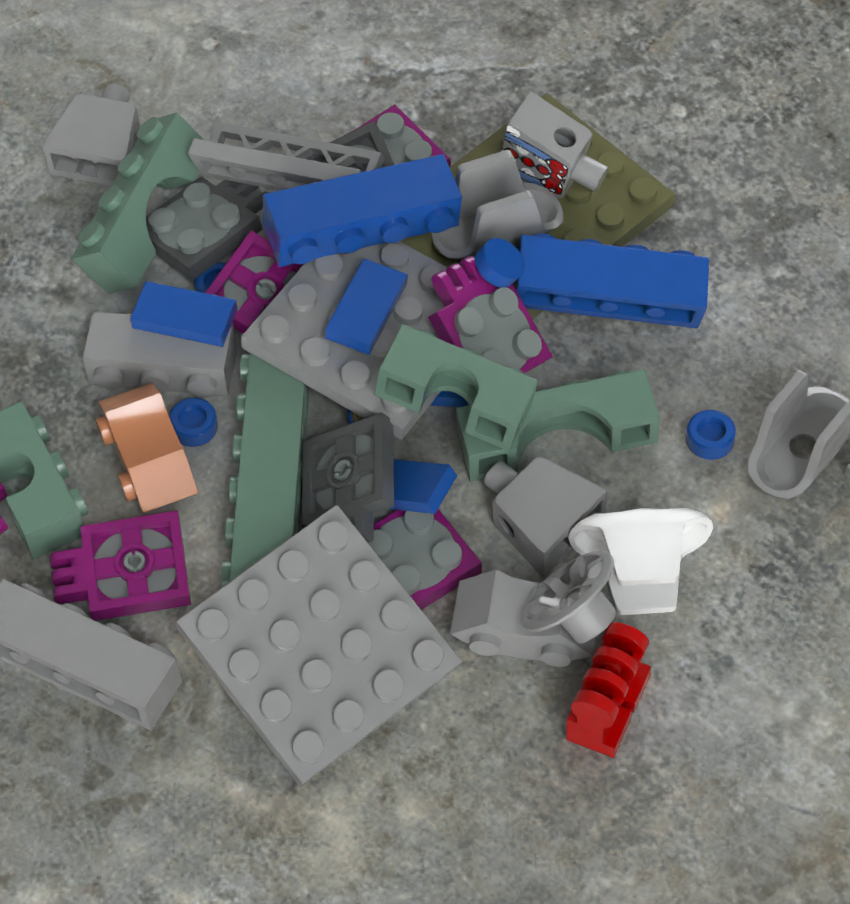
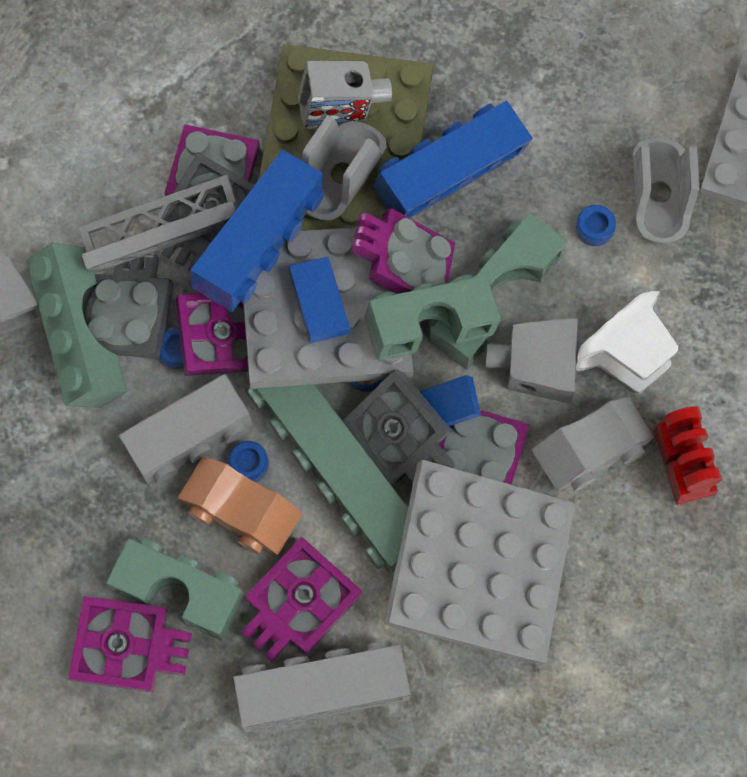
camera: 40 degrees left, 15 degrees up
(184, 313) = (189, 392): blue tile -> none
(499, 262) = (386, 205): blue tile -> none
(576, 605) = (635, 414): light grey wheel -> none

